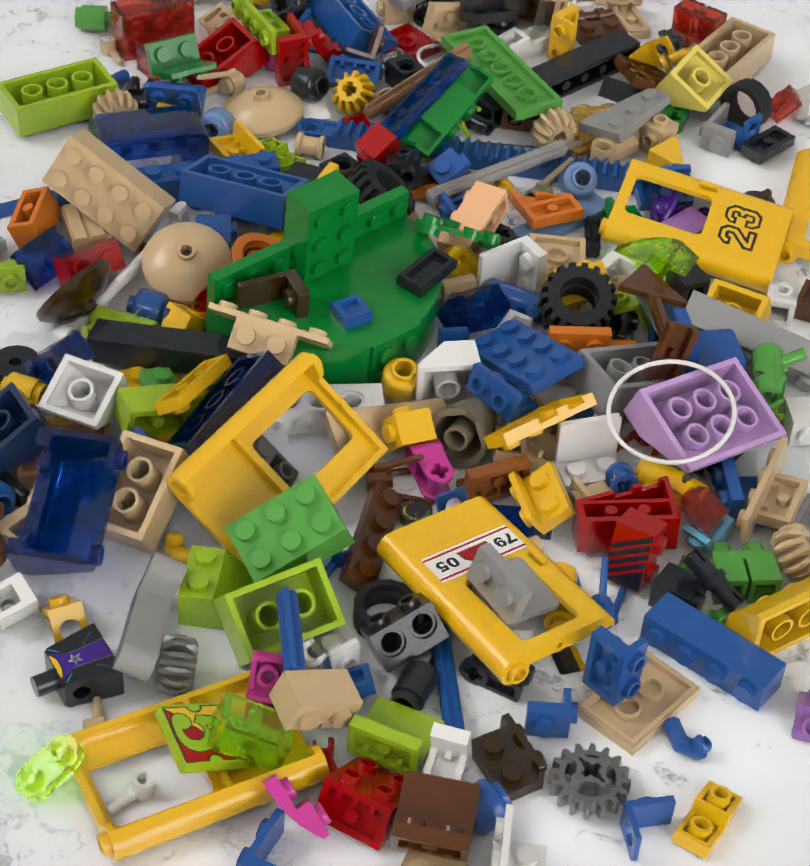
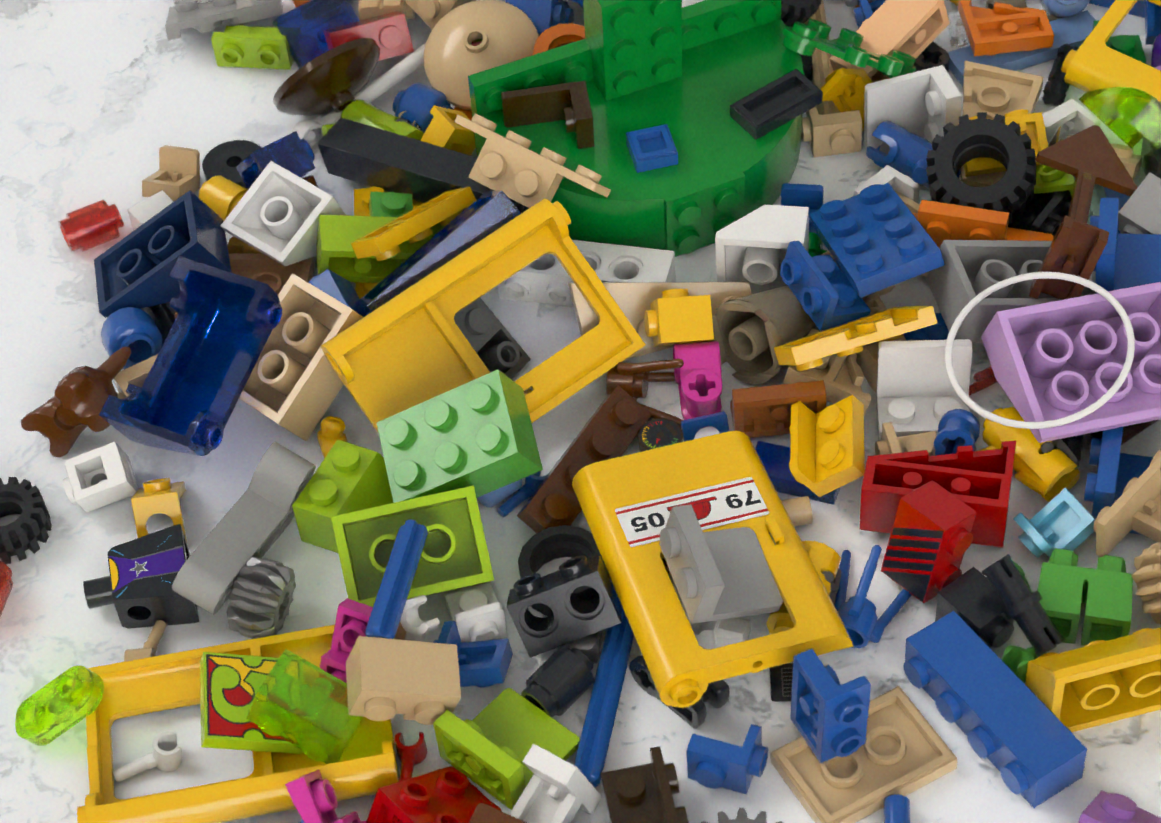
camera: 25 degrees right, 5 degrees up
(399, 380) = (698, 249): yellow head -> none
(475, 308) = (842, 162): clear blue brick -> none
(701, 509) = (1043, 497): clear red brick -> none

